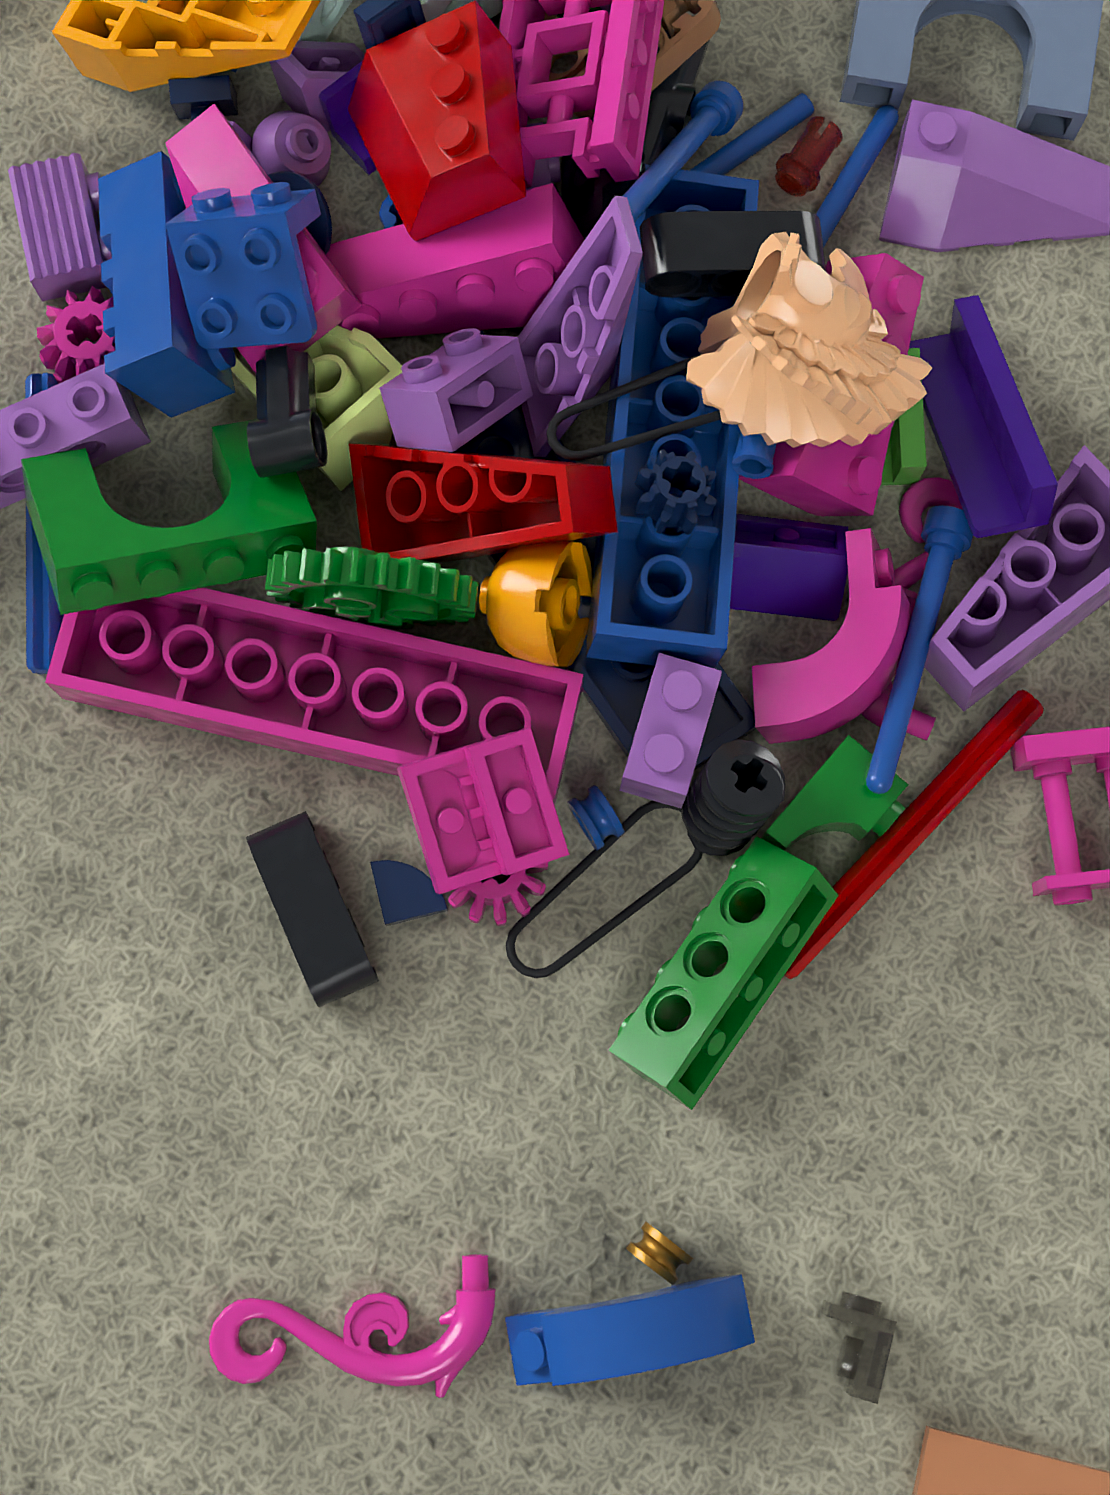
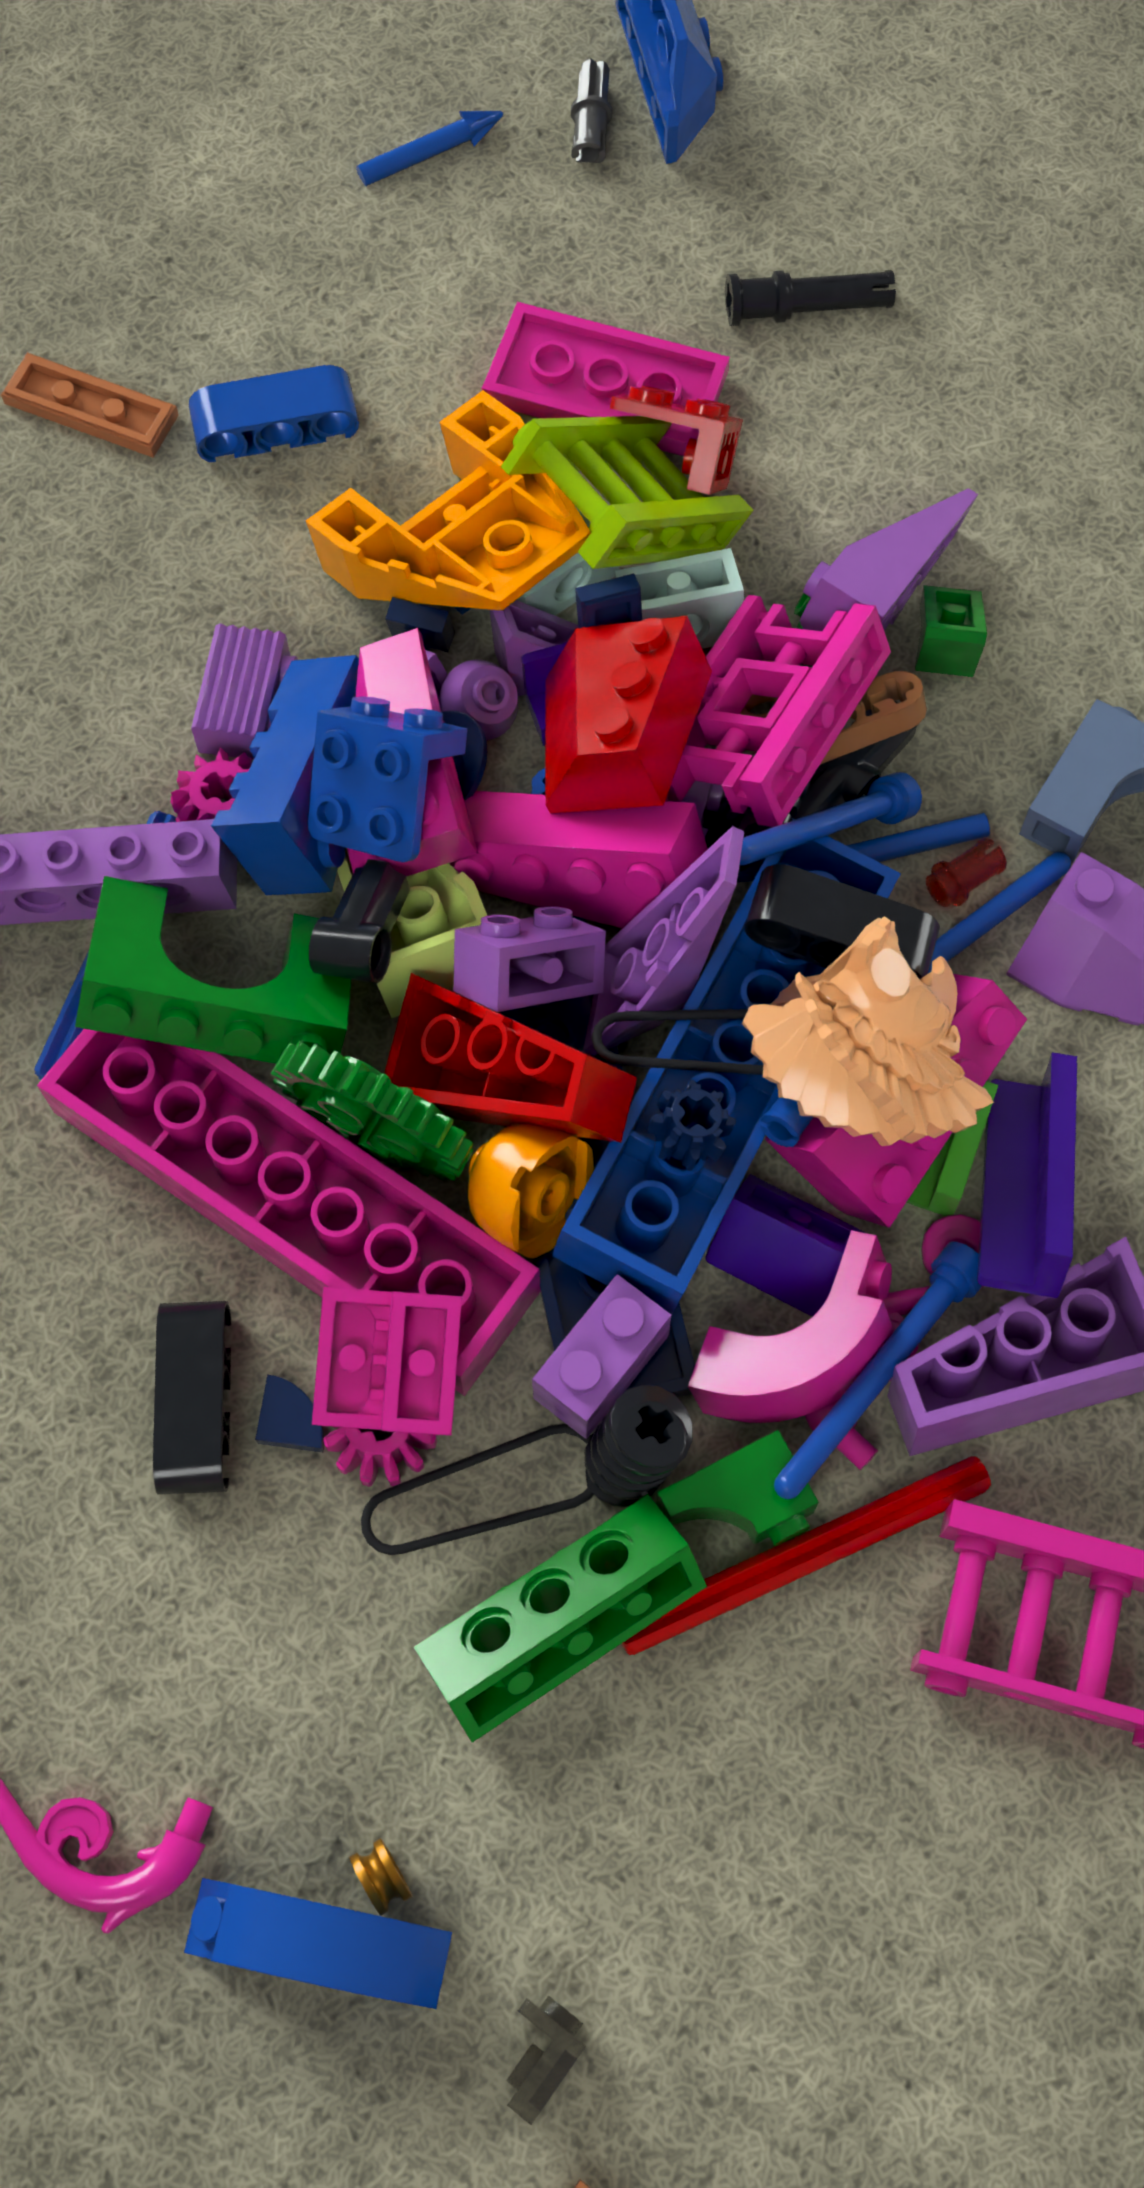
camera: 25 degrees right, 10 degrees down
(596, 817) = (501, 1416): blue bush -> none

